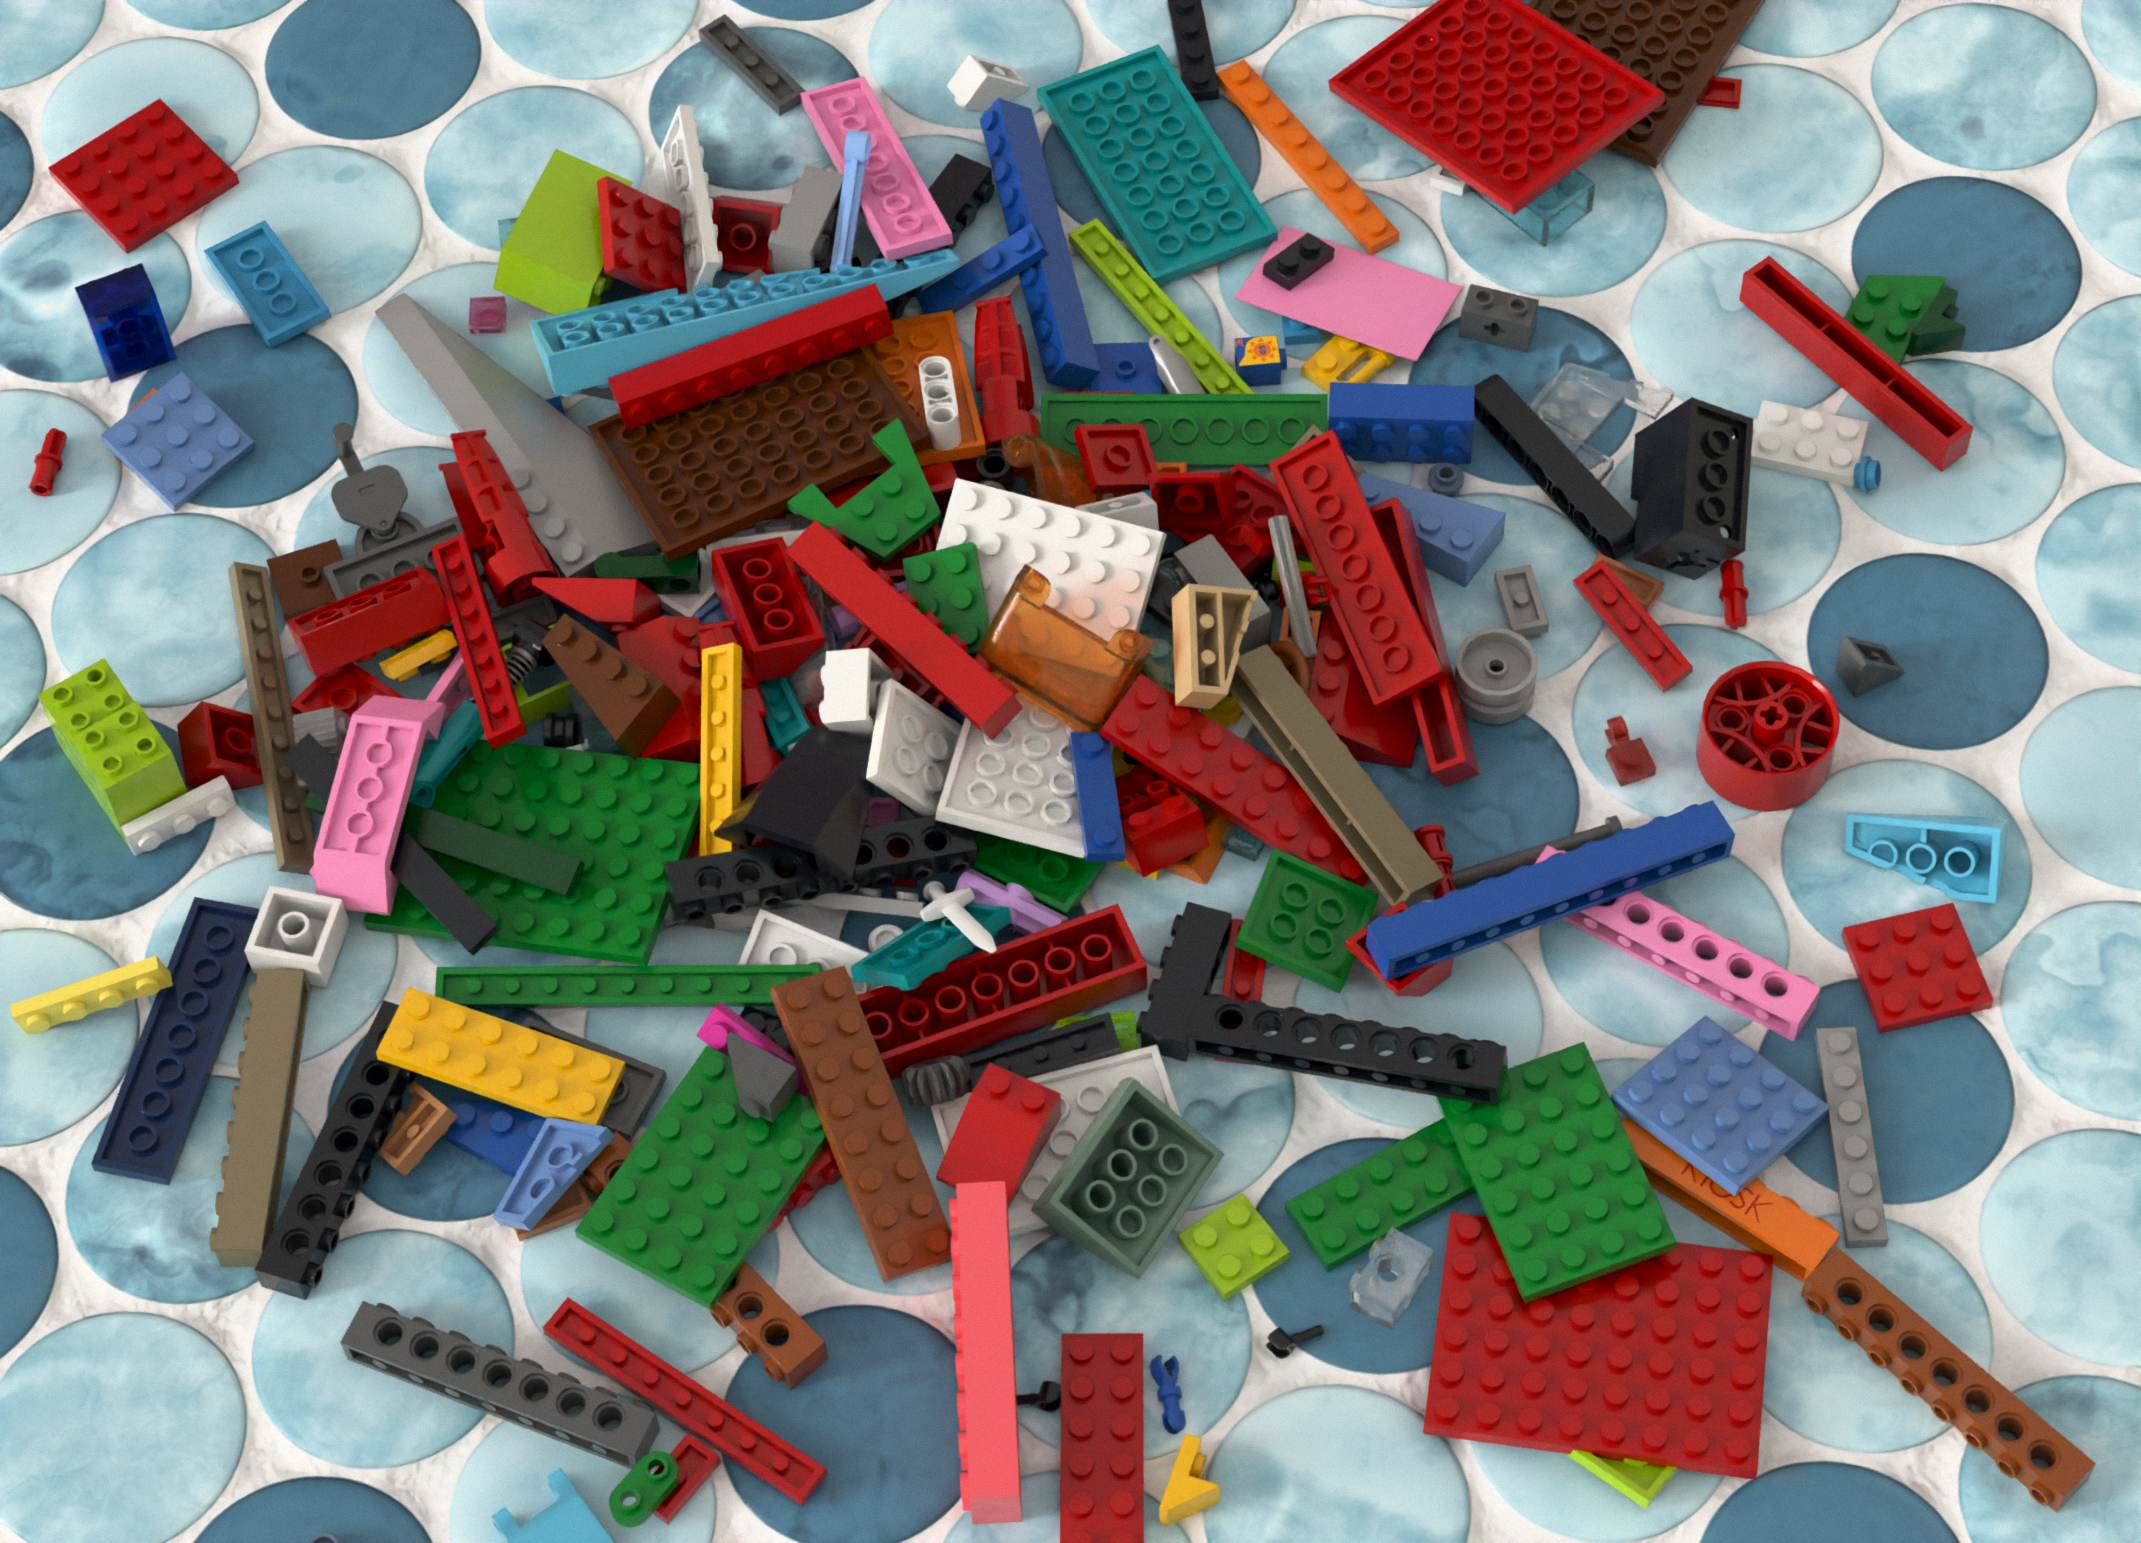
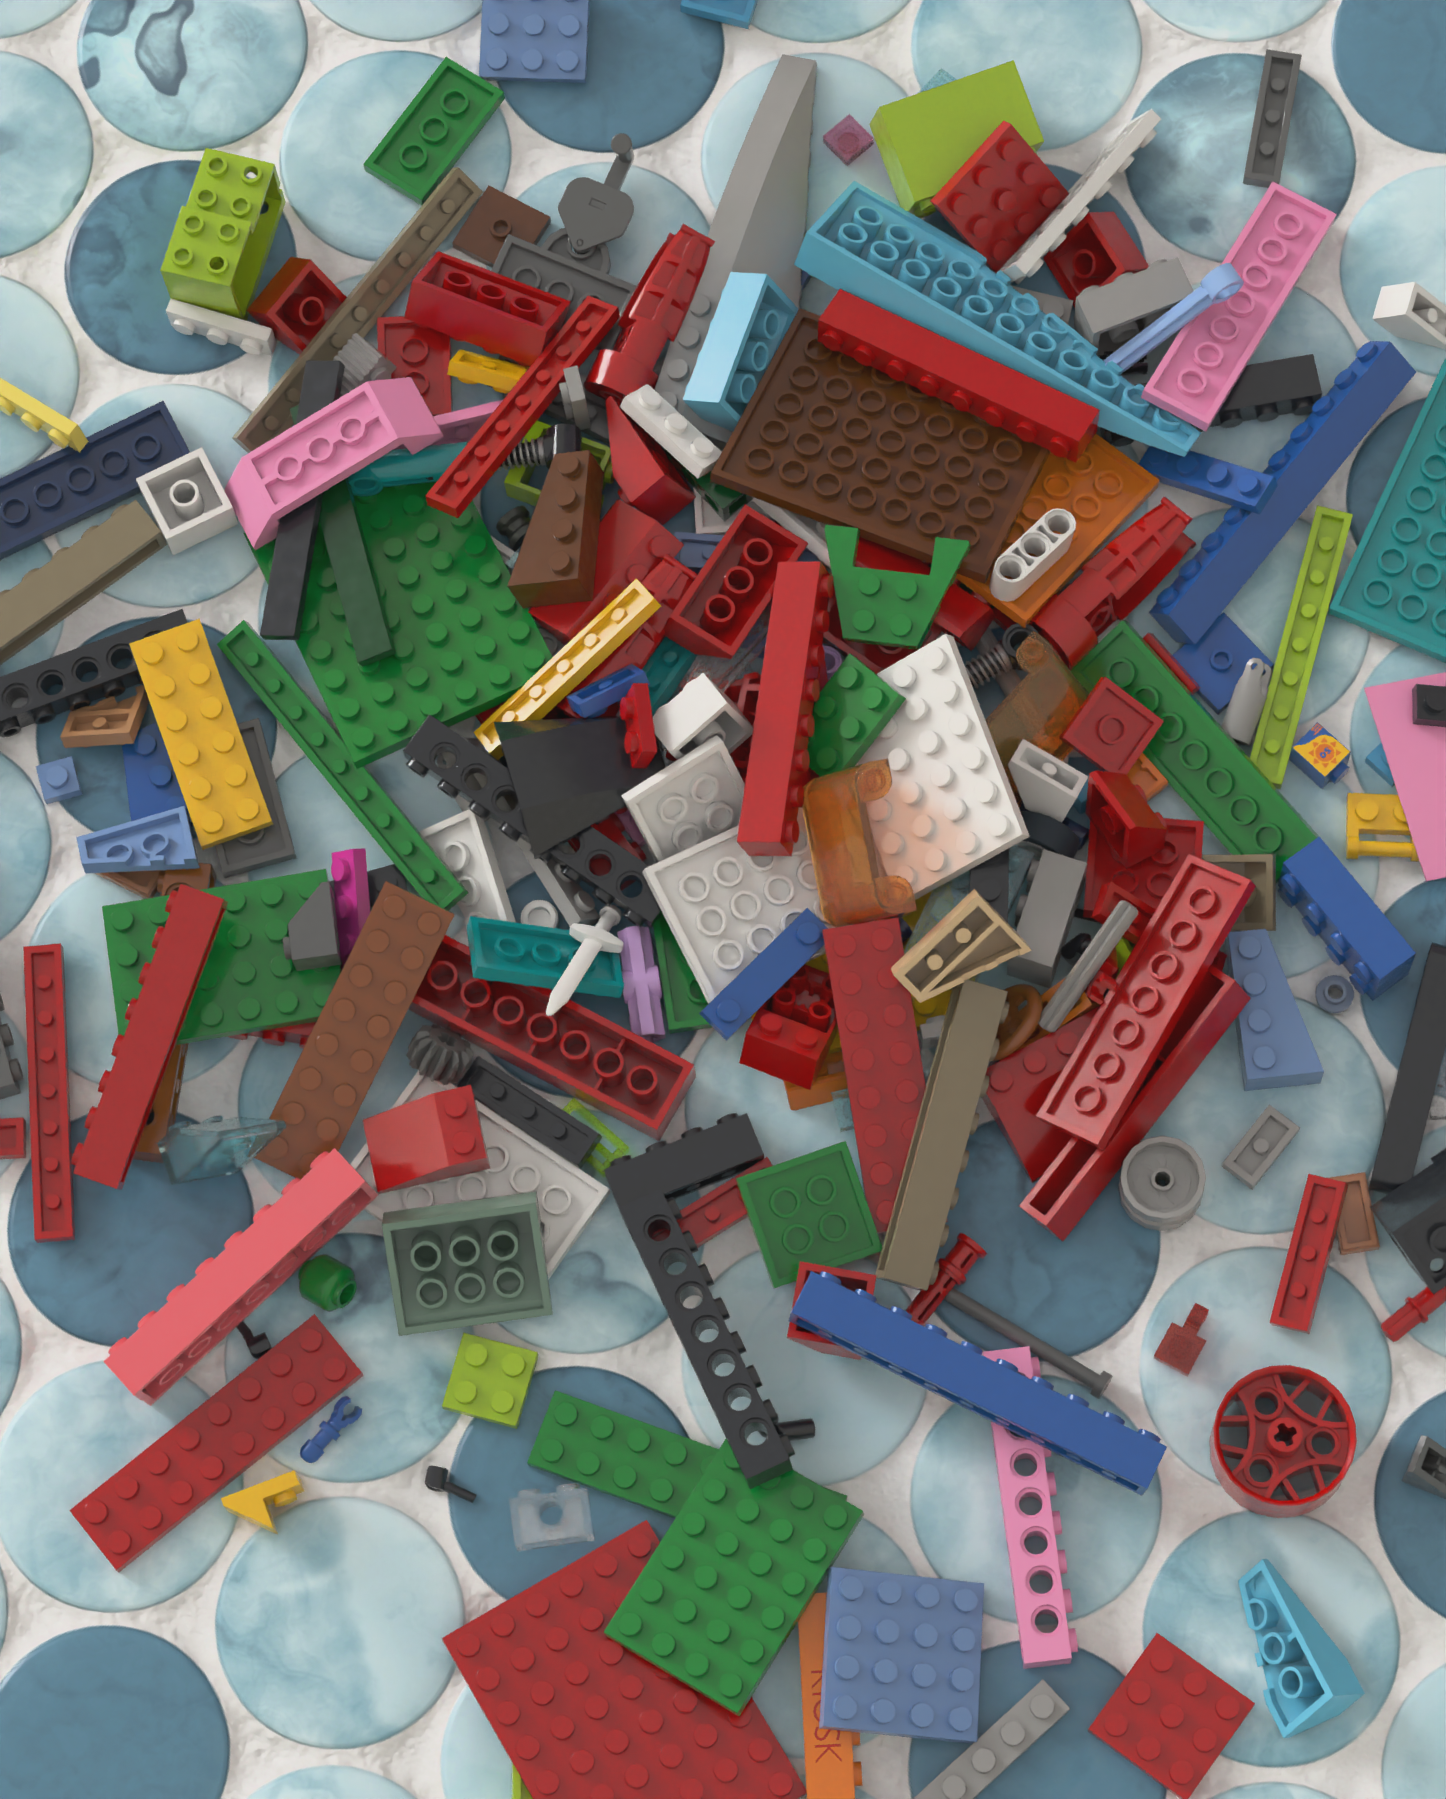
camera: 55 degrees right, 15 degrees up
(183, 564) = (434, 131): none -> green plate
(425, 1205) = (59, 780): none -> medium blue plate
(506, 602) = (574, 398): none -> light grey plate
(582, 476) = (738, 347): none -> medium azure slope
(602, 557) = (671, 430): none -> white plate
(727, 1263) = (150, 1036): none -> red brick
(768, 737) = (596, 697): none -> blue plate
(823, 726) = (640, 734): none -> red plate
(860, 1293) = (215, 1146): none -> clear light blue slope
(1044, 1303) = (327, 1282): none -> green head

